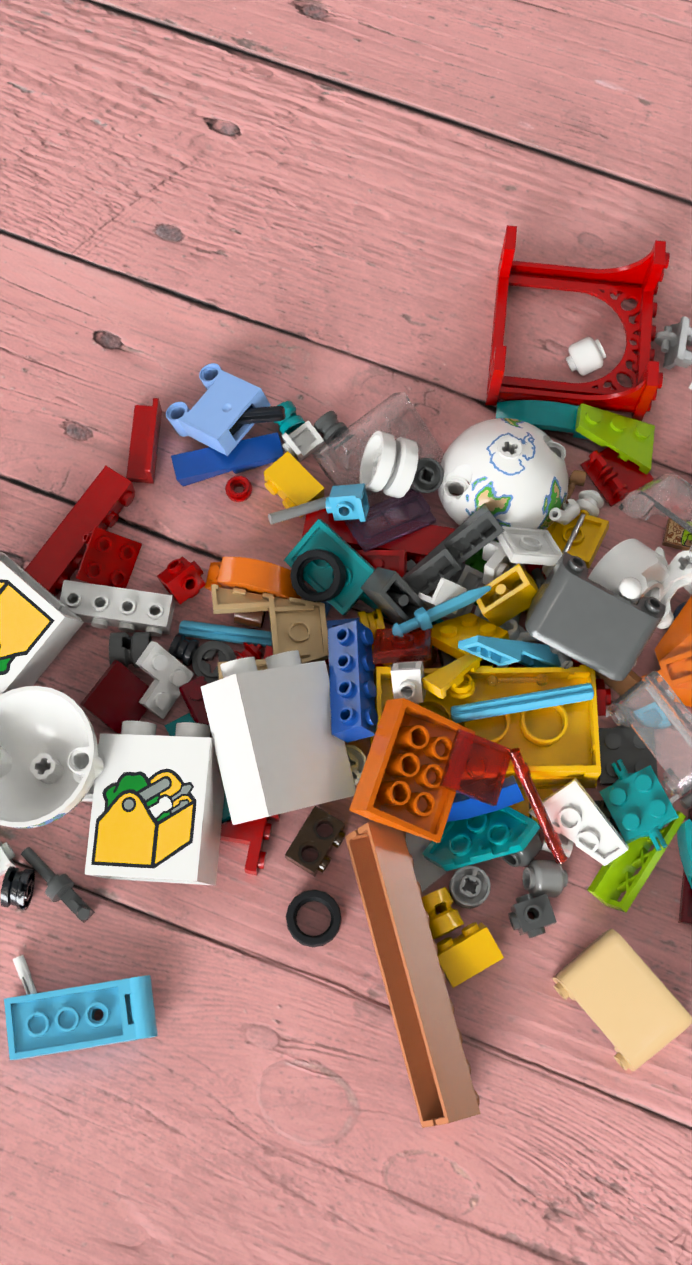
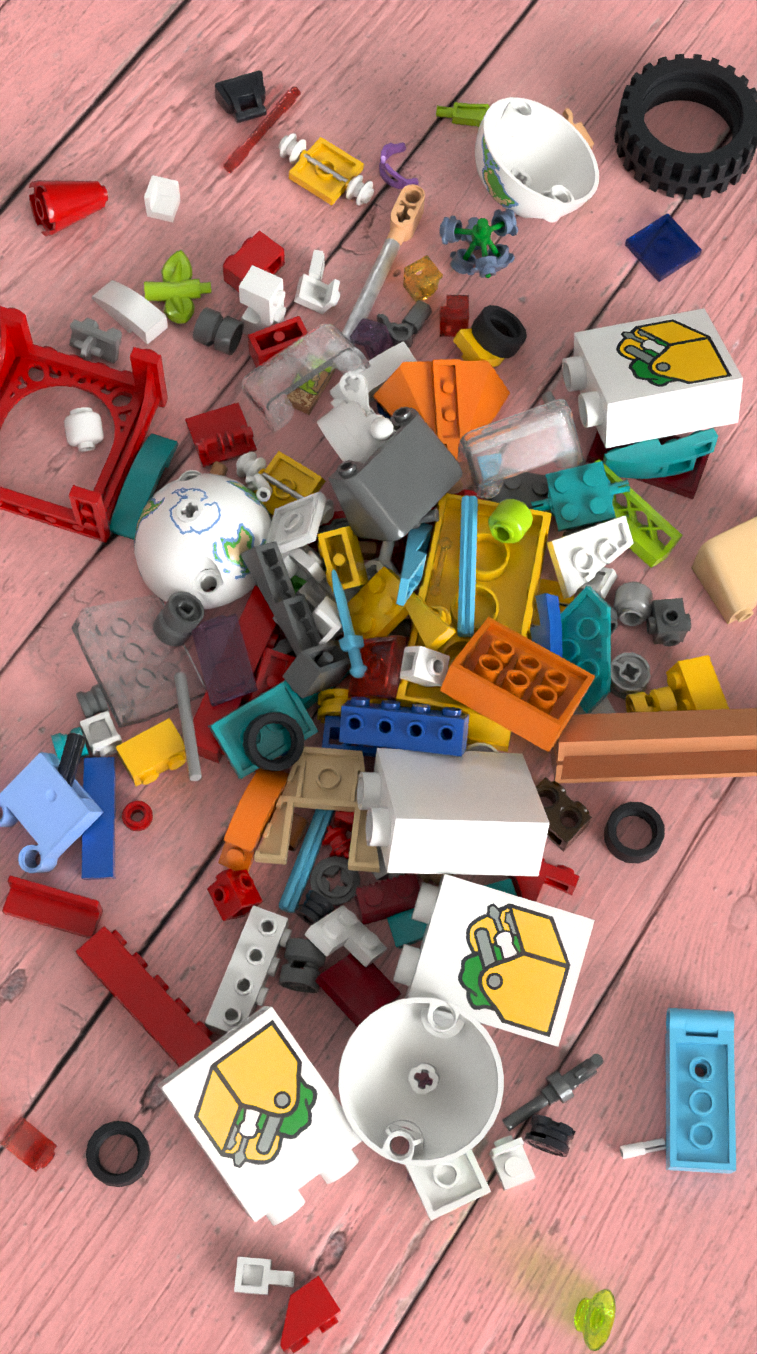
camera: 80 degrees left, 5 degrees down
(108, 558) = (191, 969): red hinge -> none
(348, 502) = (198, 691): medium azure brick -> none
(389, 464) = (166, 641): white wheel -> none
(476, 767) = (527, 622): clear red tile -> none
(524, 775) = (540, 581): clear red piece -> none
(576, 731) = (510, 521): none -> lime head
(620, 433) = (181, 419): lime wing -> none

